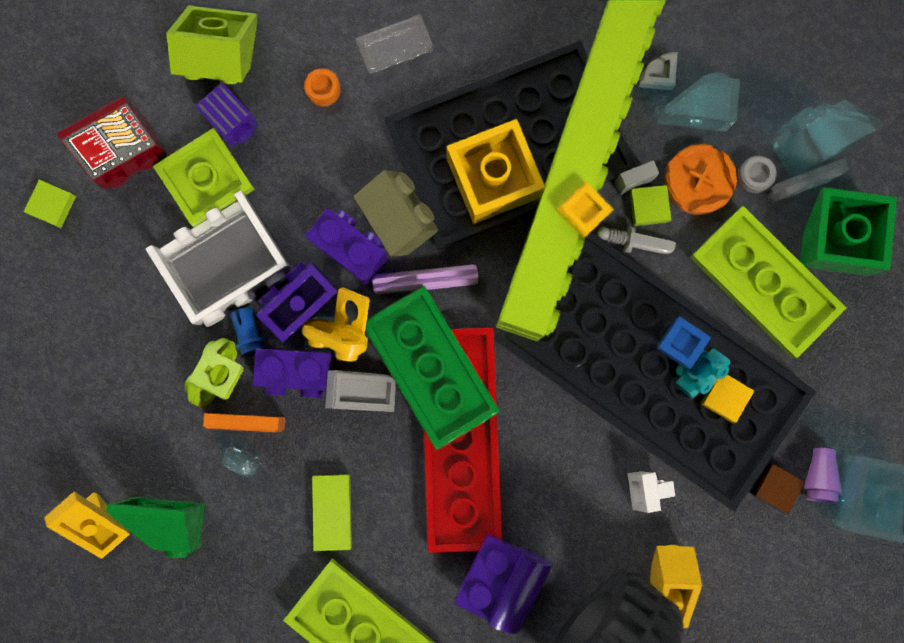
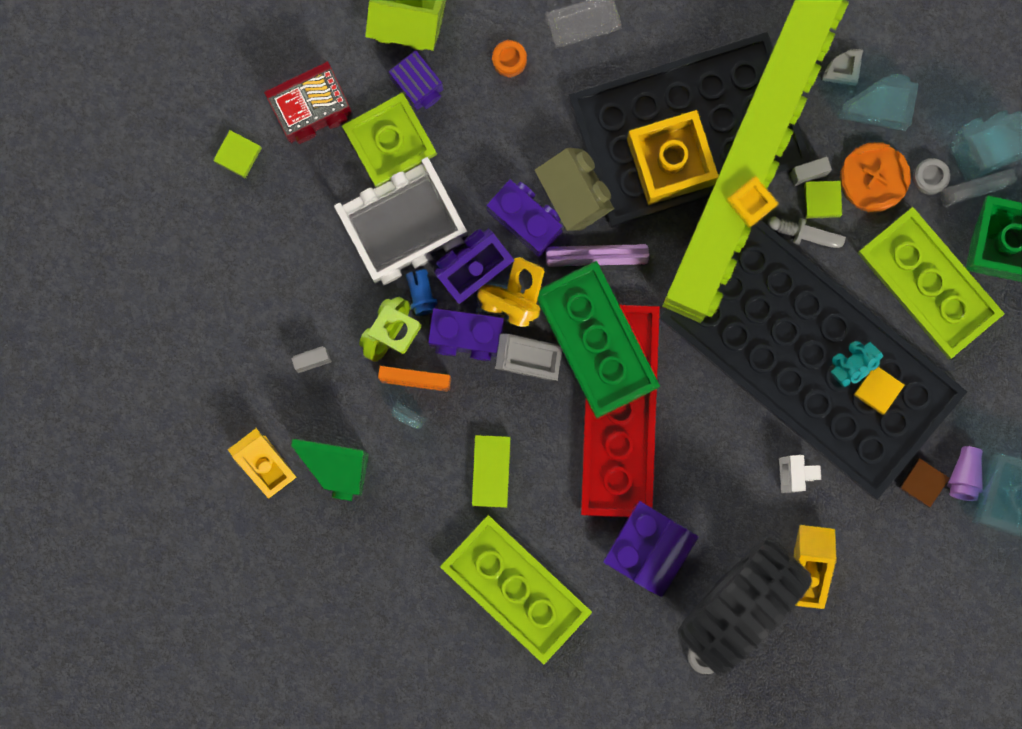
camera: 15 degrees right, 0 degrees up
(135, 410) = (311, 359): none -> light grey tile
(683, 343) = (839, 333): blue tile -> none

